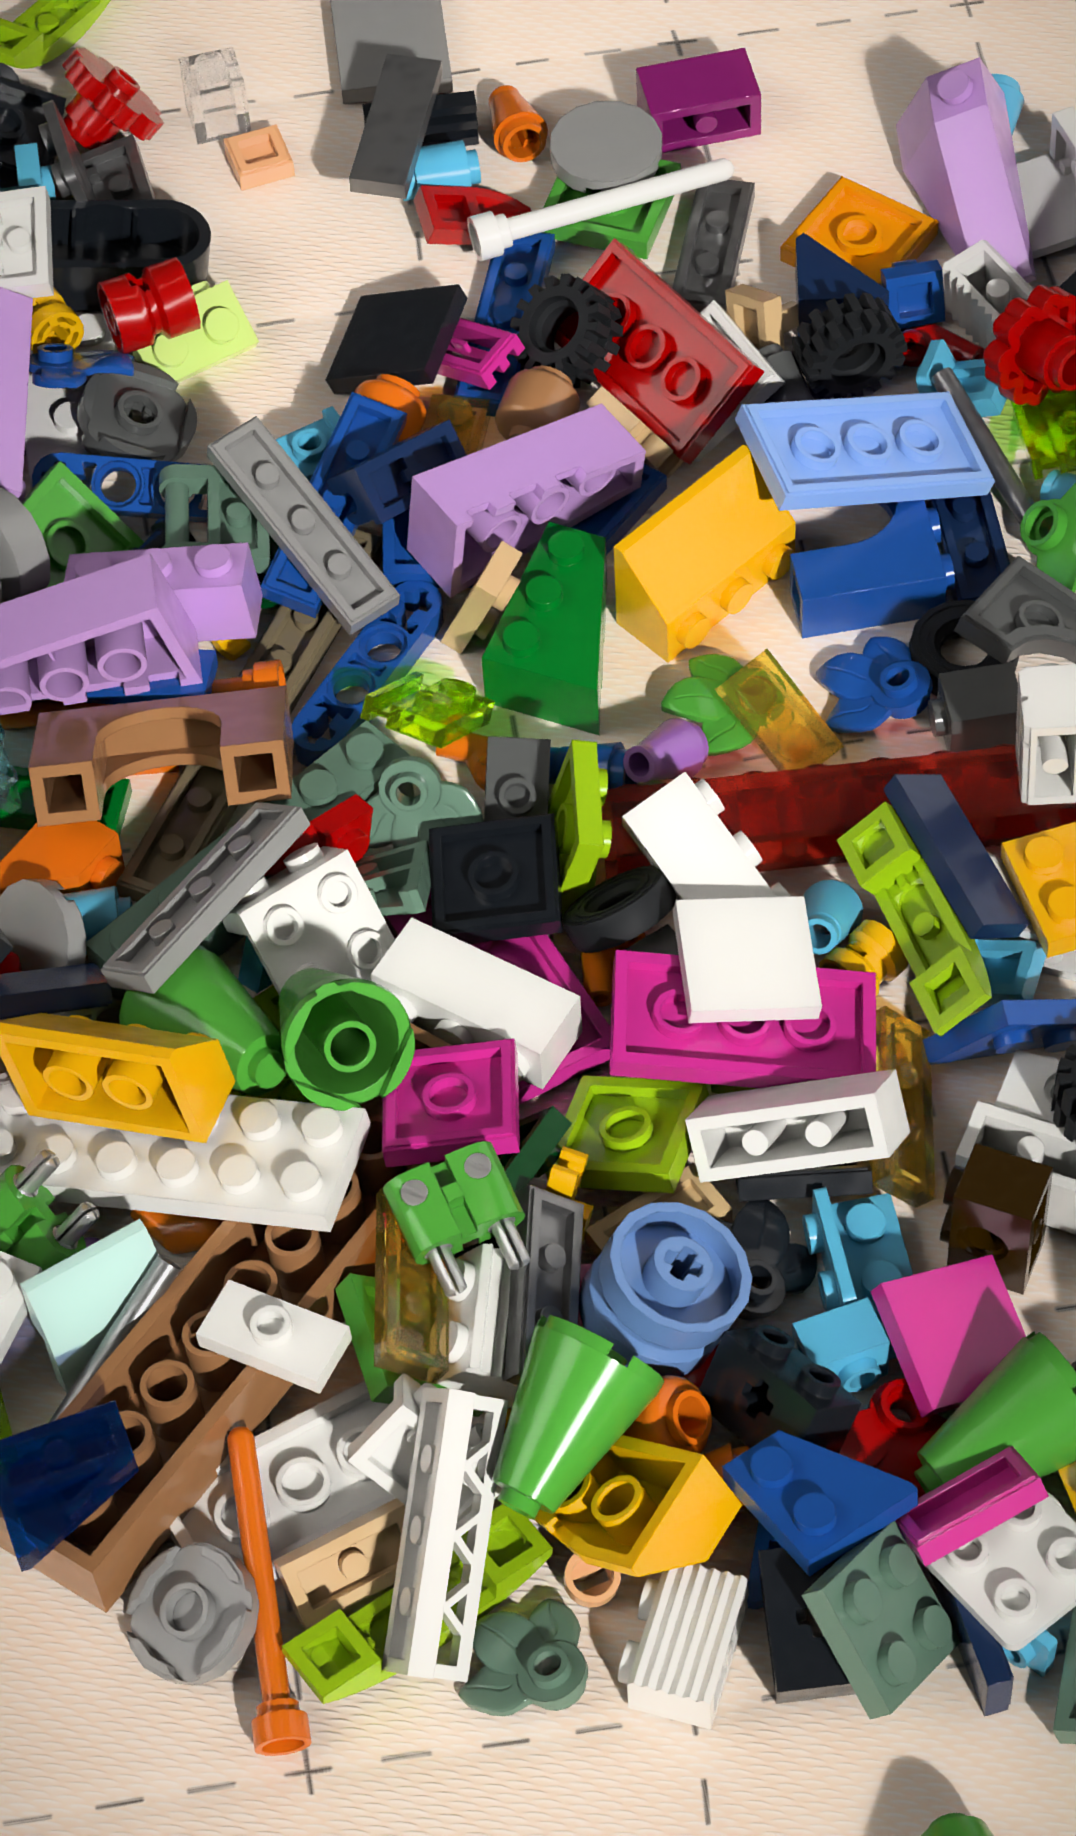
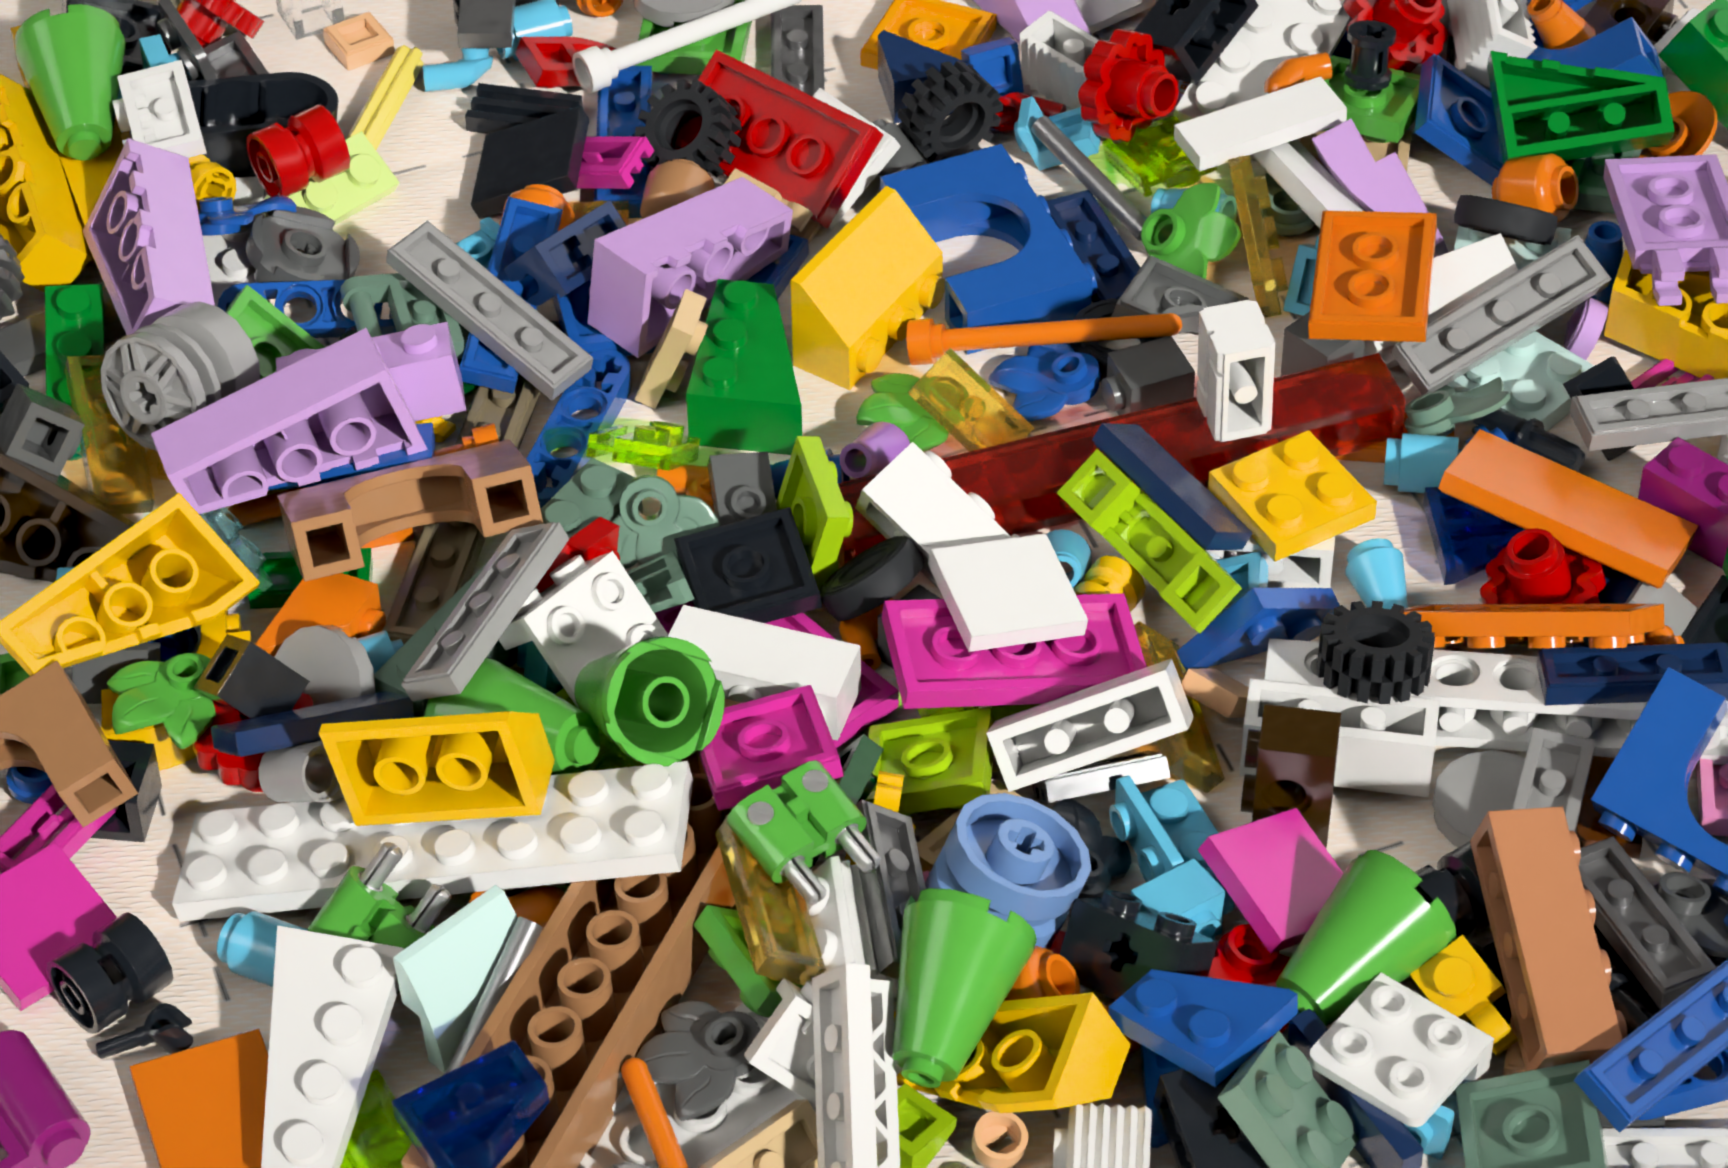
camera: 15 degrees left, 10 degrees down
(269, 235) = (388, 95): none -> light yellow axle
(274, 1336) = (650, 966): white plate -> none
(304, 1438) = (694, 1055): none -> dark grey plate
(349, 214) = (460, 73): none -> medium azure arm
(407, 260) = (506, 107): none -> black tile
(761, 314) = (863, 96): tan tile -> none
(761, 622) = (931, 341): none -> orange piece
(864, 450) = (992, 183): light blue tile -> none
(951, 1094) = (1216, 691): none -> light nougat tile
(971, 1505) = (1347, 1004): dark pink tile -> none

